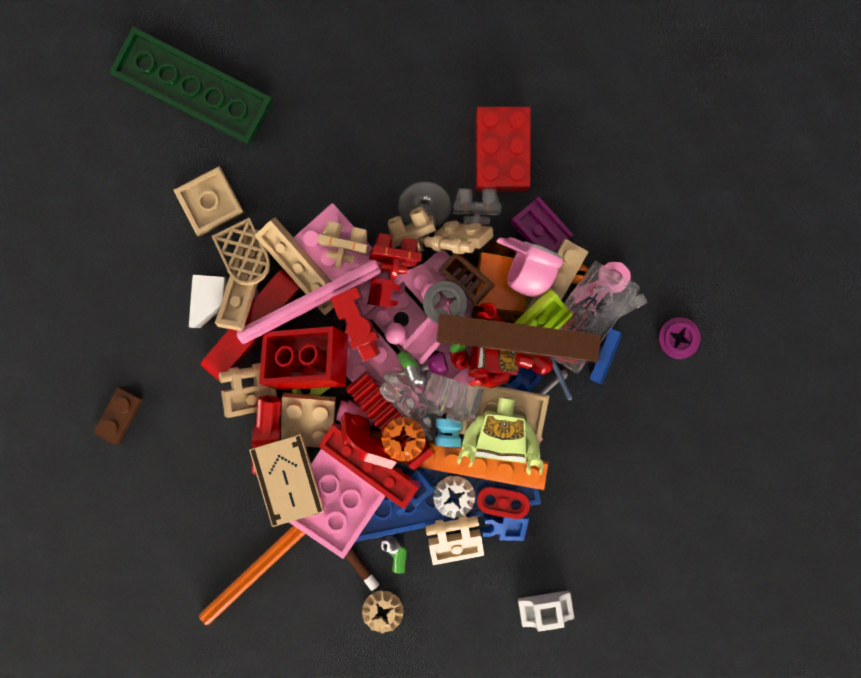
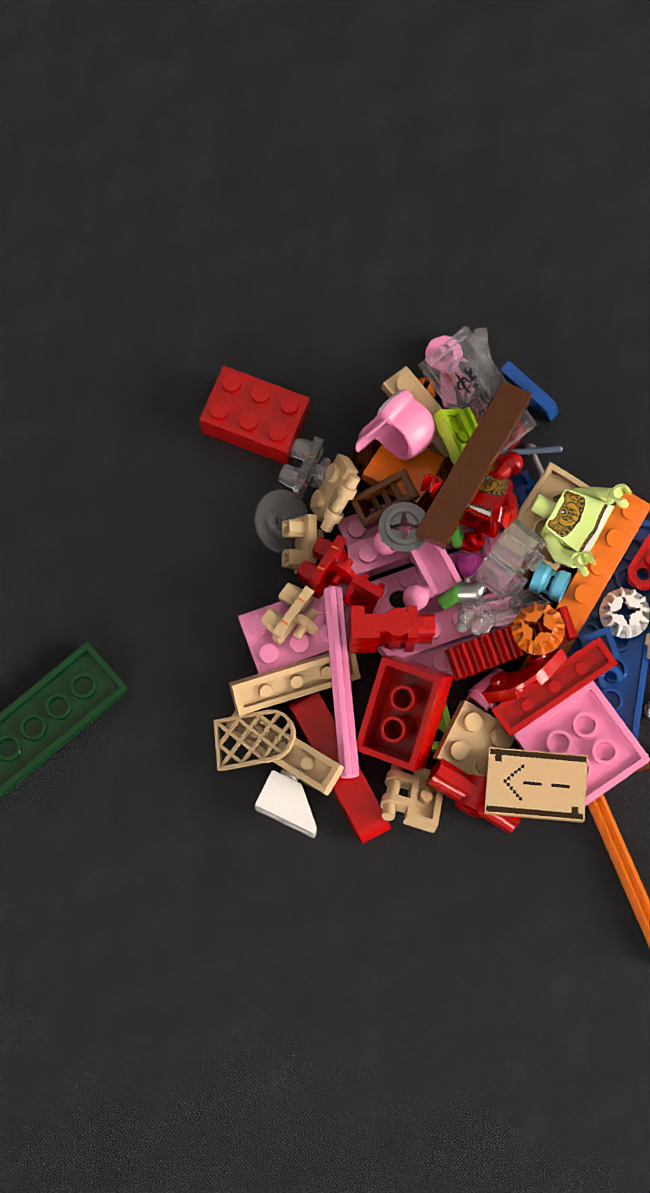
camera: 70 degrees left, 15 degrees down
(118, 415) = (382, 969): reddish brown plate -> none
(209, 201) = (173, 762): tan tile -> none
(541, 226) = (355, 407): magenta plate -> none
(690, 334) = (538, 300): magenta gear -> none

